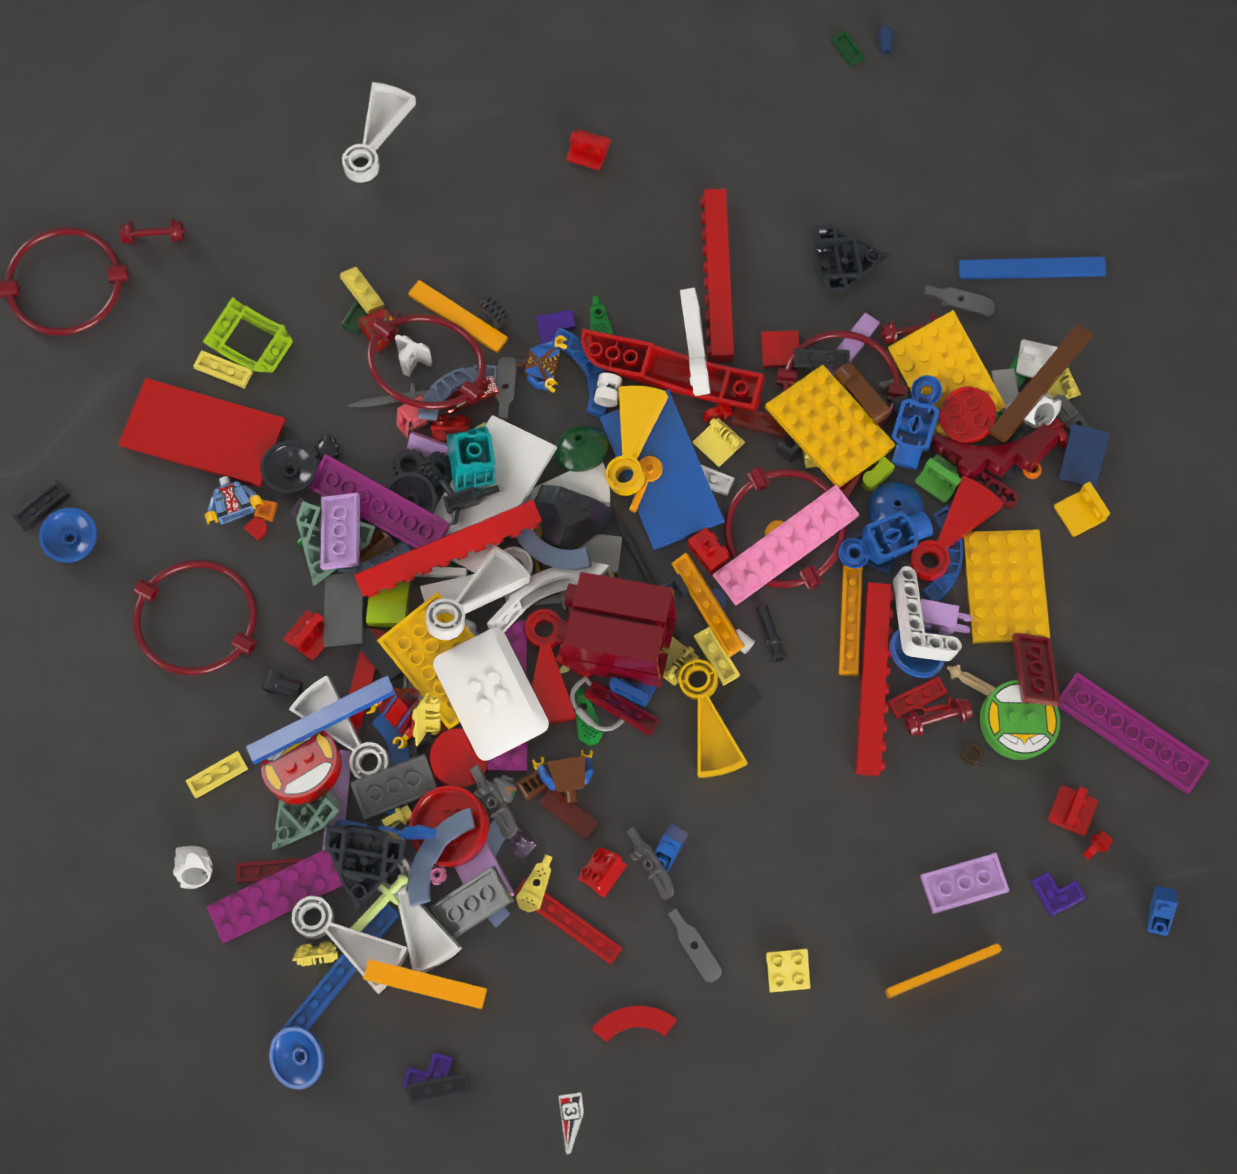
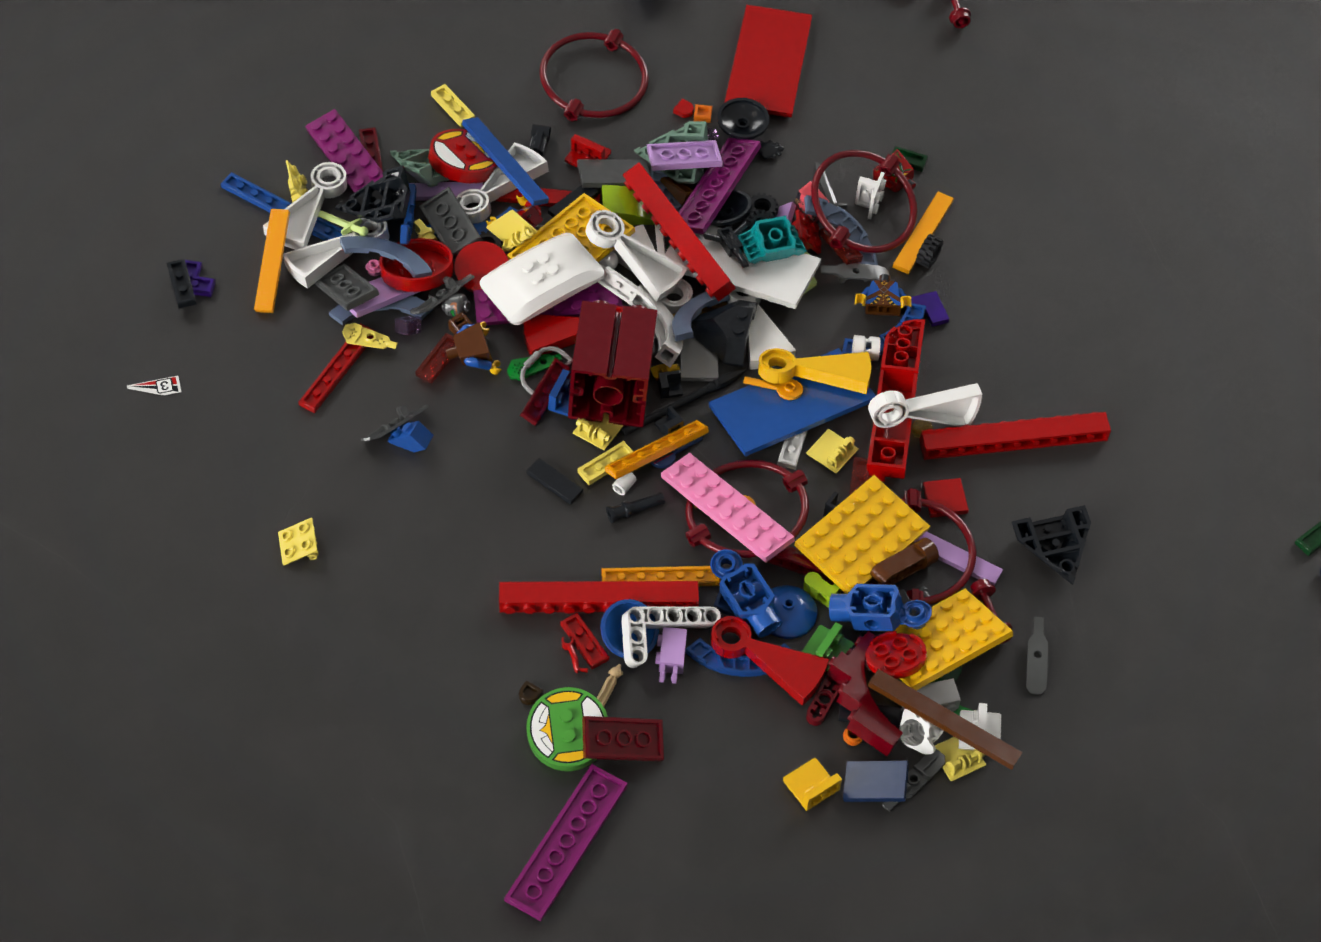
camera: 80 degrees right, 15 degrees down
(192, 866) = (369, 94): white piece -> none
(223, 369) = (832, 67): light yellow plate -> none
(227, 322) = (870, 59): lime wedge -> none
(231, 502) = (703, 84): torso -> none
(288, 1060) = (206, 181): blue dish -> none
(362, 290) = (932, 156): light yellow plate -> none
(385, 111) = (1123, 155): white piece -> none
(581, 448) = (803, 336): dark green dish -> none
(588, 149) = (1129, 317): red bracket -> none
(599, 320) = (939, 346): green piece -> none
(602, 871) = (383, 388): red bracket -> none
(633, 1017) = (249, 422): red tile -> none
(701, 955) = (308, 469): dark grey piece -> none
(708, 550) = (714, 447): red brick -> none
(716, 747) = (515, 466): yellow piece -> none
(720, 411) = (861, 443): red piece -> none
(817, 357) = (939, 527): black tile -> none
(943, 970) = (302, 673): light orange tile -> none
(961, 709) = (572, 675): dark red piece -> none
(964, 883) = (394, 692): lavender tile -> none
(1005, 585) = (717, 716): yellow plate -> none
(1032, 268) = (1094, 729): blue tile -> none
(1056, 899) = (383, 774): dark purple tile -> none
(1060, 427) = (904, 755): red piece -> none
(1073, 810) = (476, 787): red bracket -> none
(1099, 842) = (444, 815): red piece -> none
(1162, 910) = (375, 873): blue slope -> none

